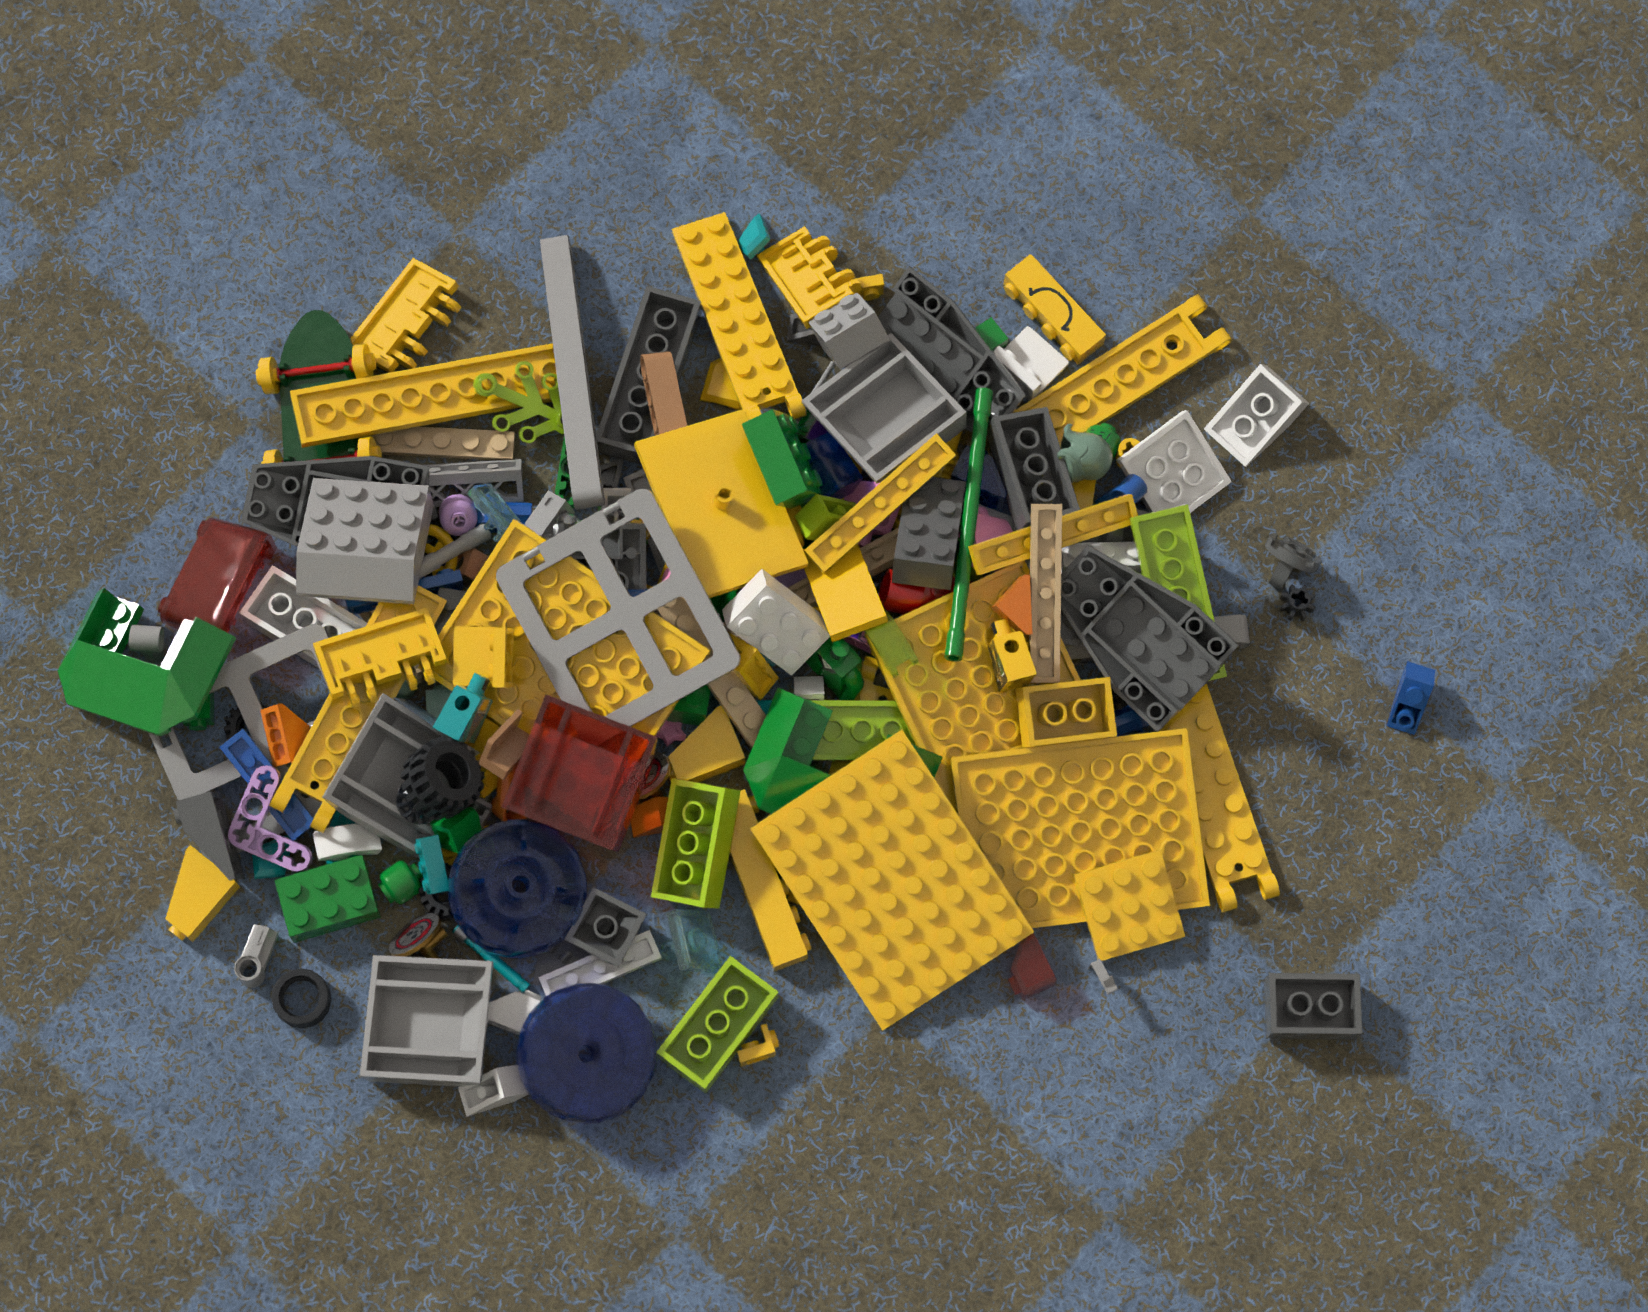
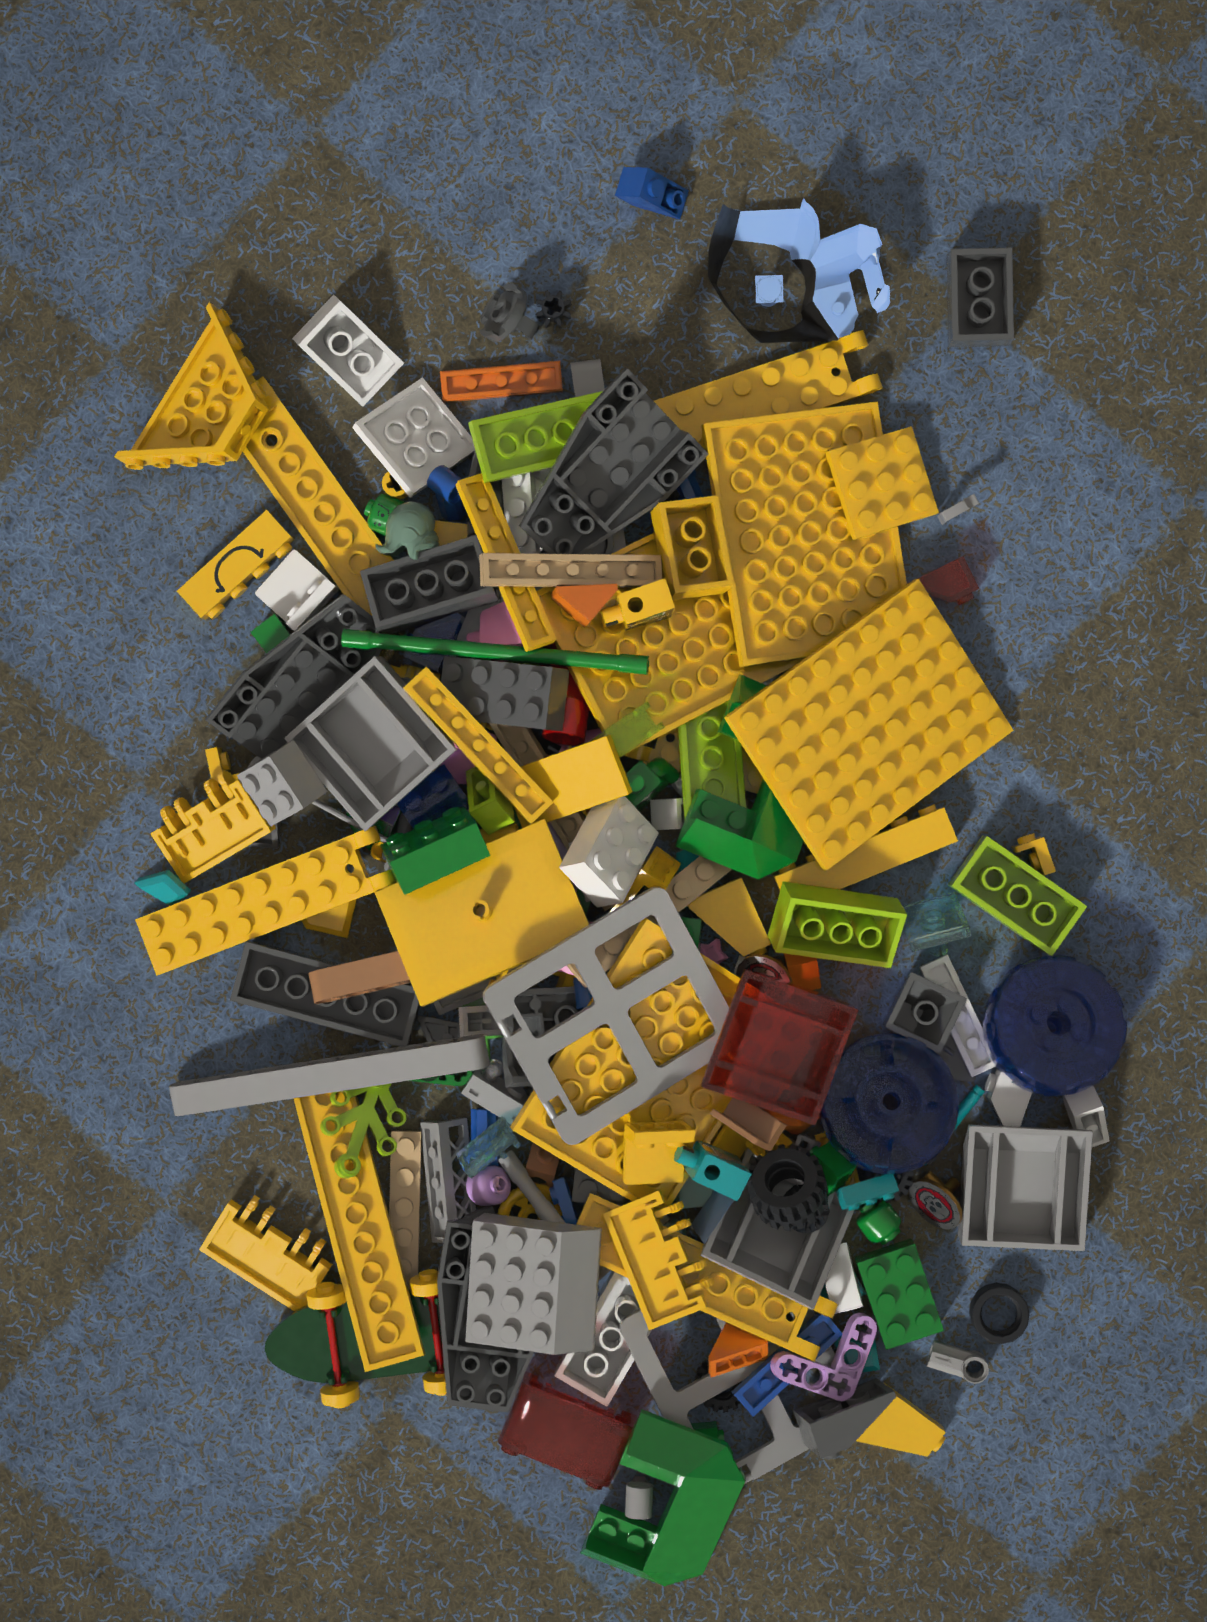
camera: 85 degrees left, 15 degrees up
(1202, 287) = (207, 408): none -> yellow piece
(1228, 555) = (501, 381): none -> orange tile
(1349, 856) = (825, 263): none -> light blue piece

